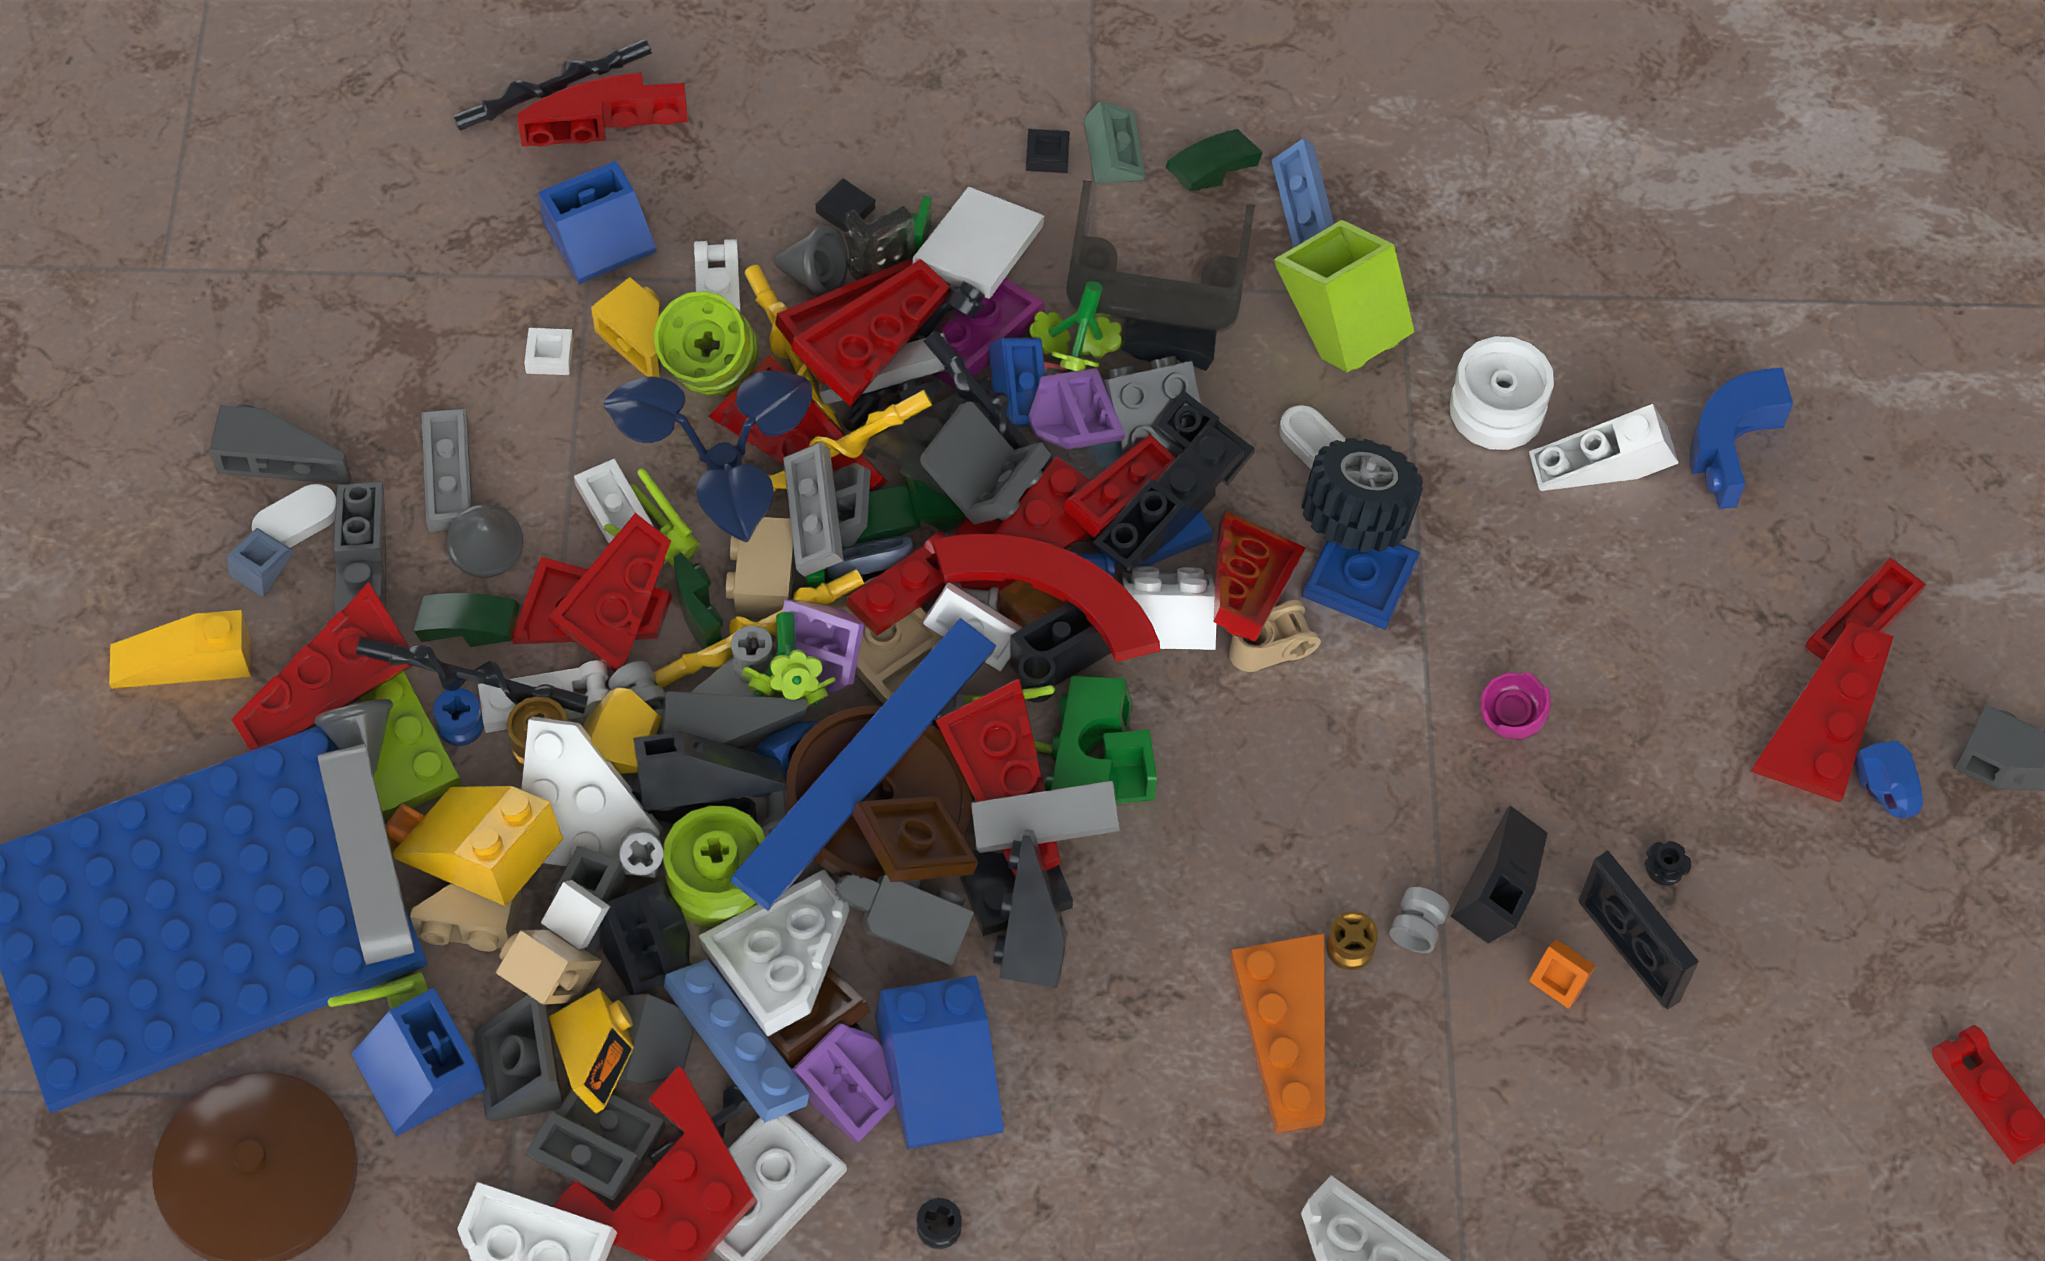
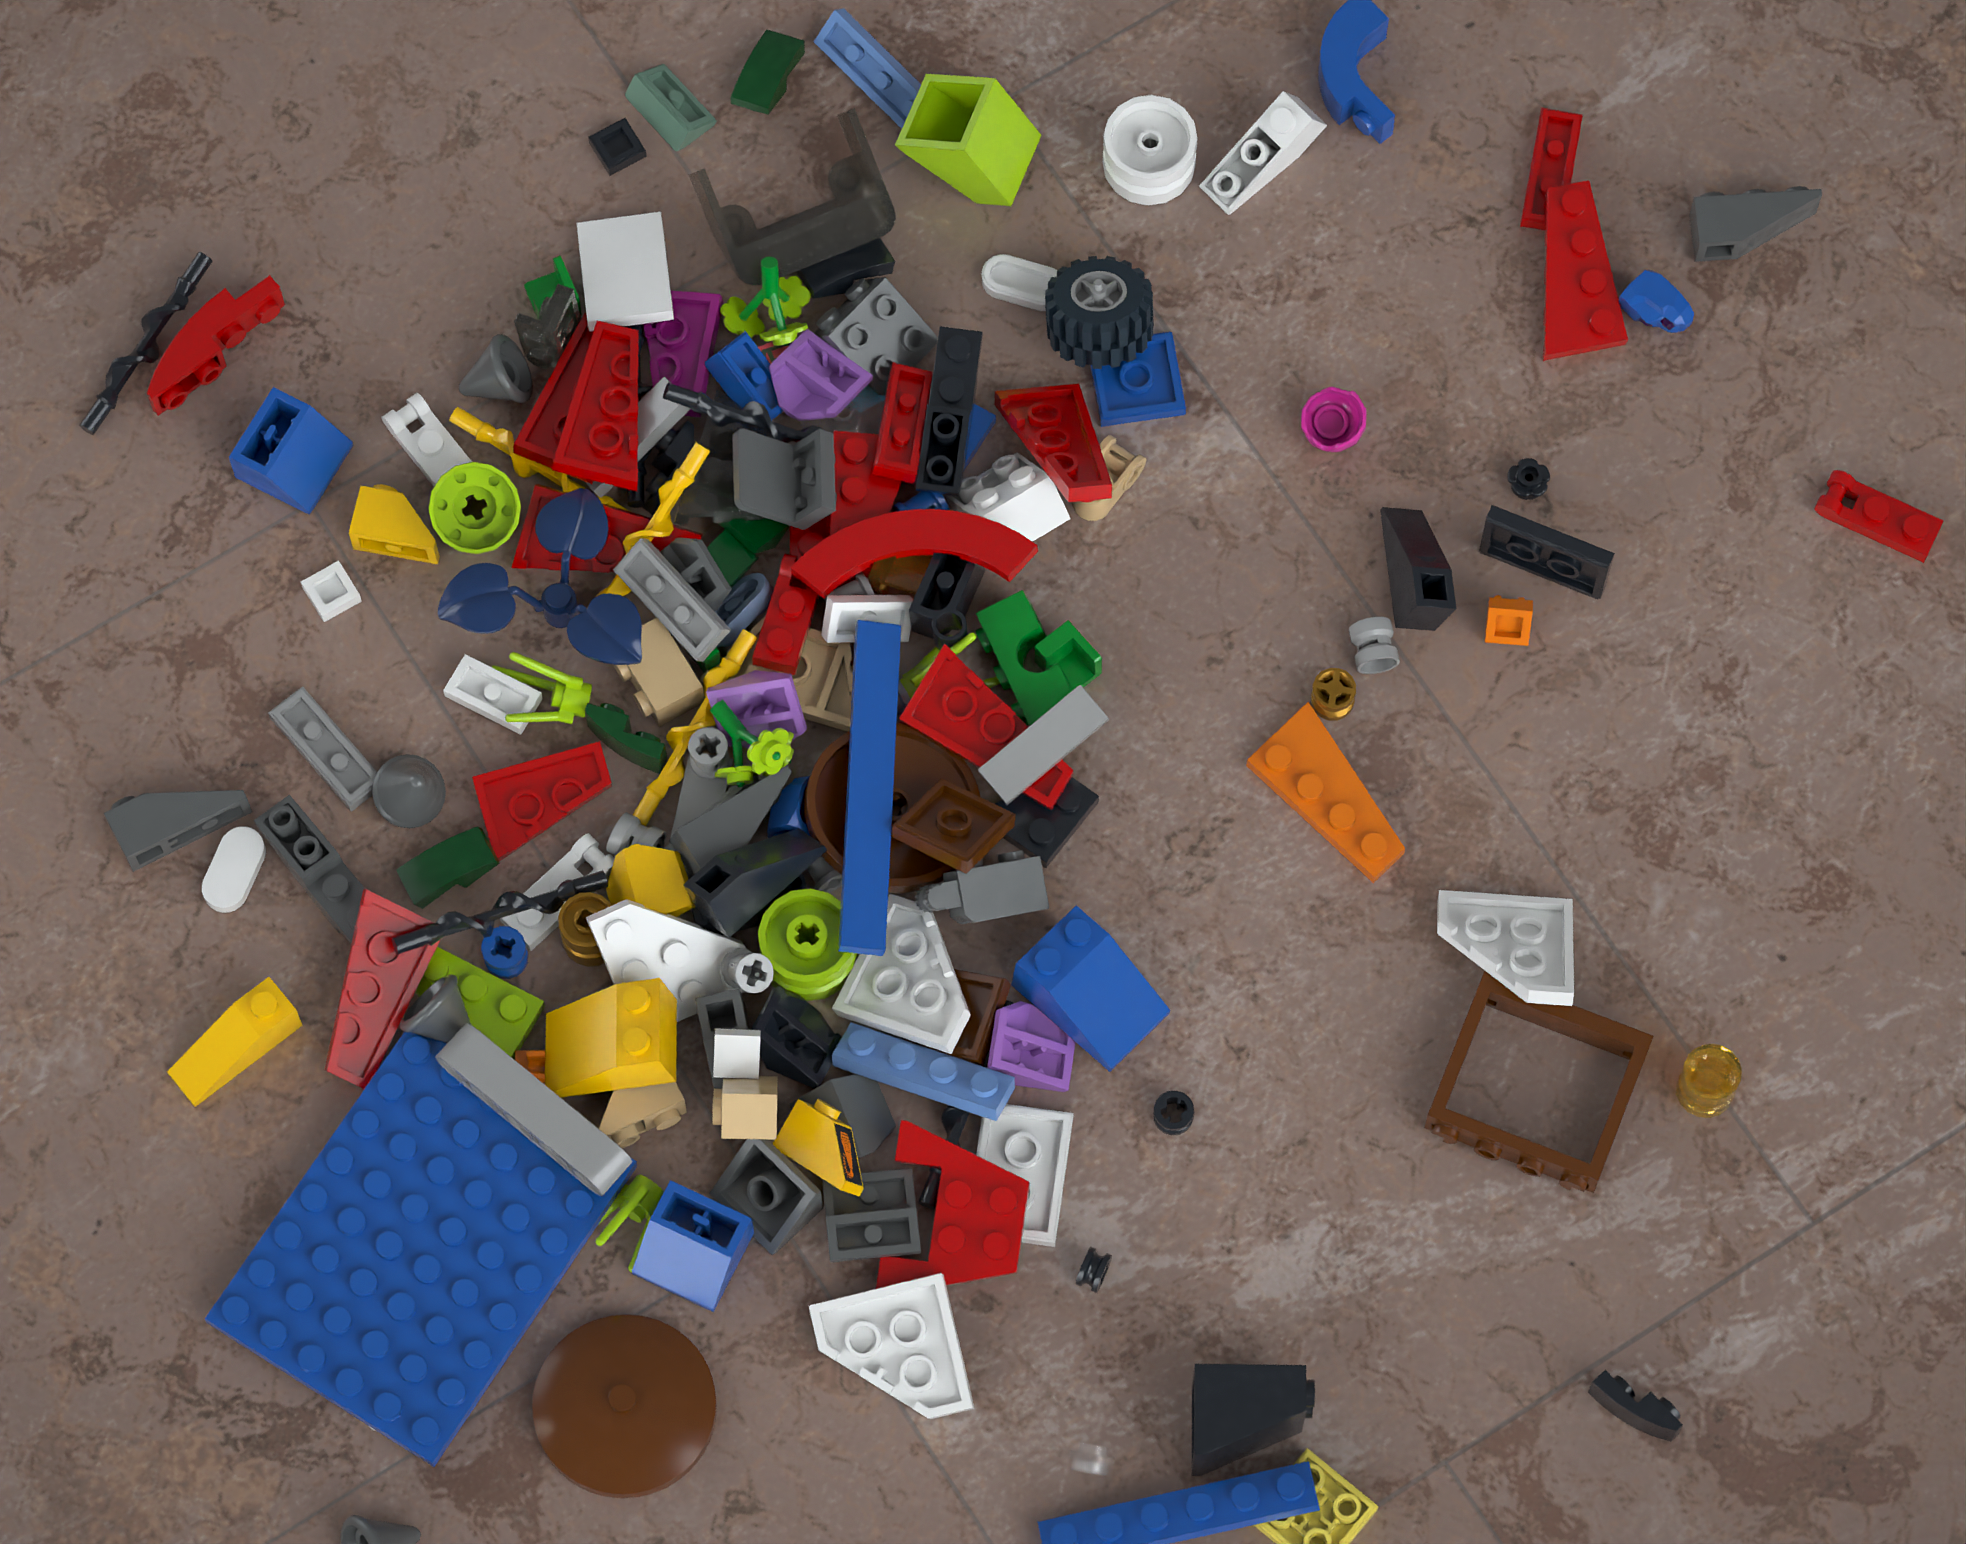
camera: 30 degrees left, 10 degrees up
(258, 561) = (236, 925): sand blue slope -> none
(614, 593) = (560, 775): red wing -> none
(841, 200) = (483, 304): black tile -> none
(966, 299) = (658, 333): black plate -> none
(1035, 929) = (1096, 846): black slope -> none
(1189, 418) = (919, 332): black slope -> none

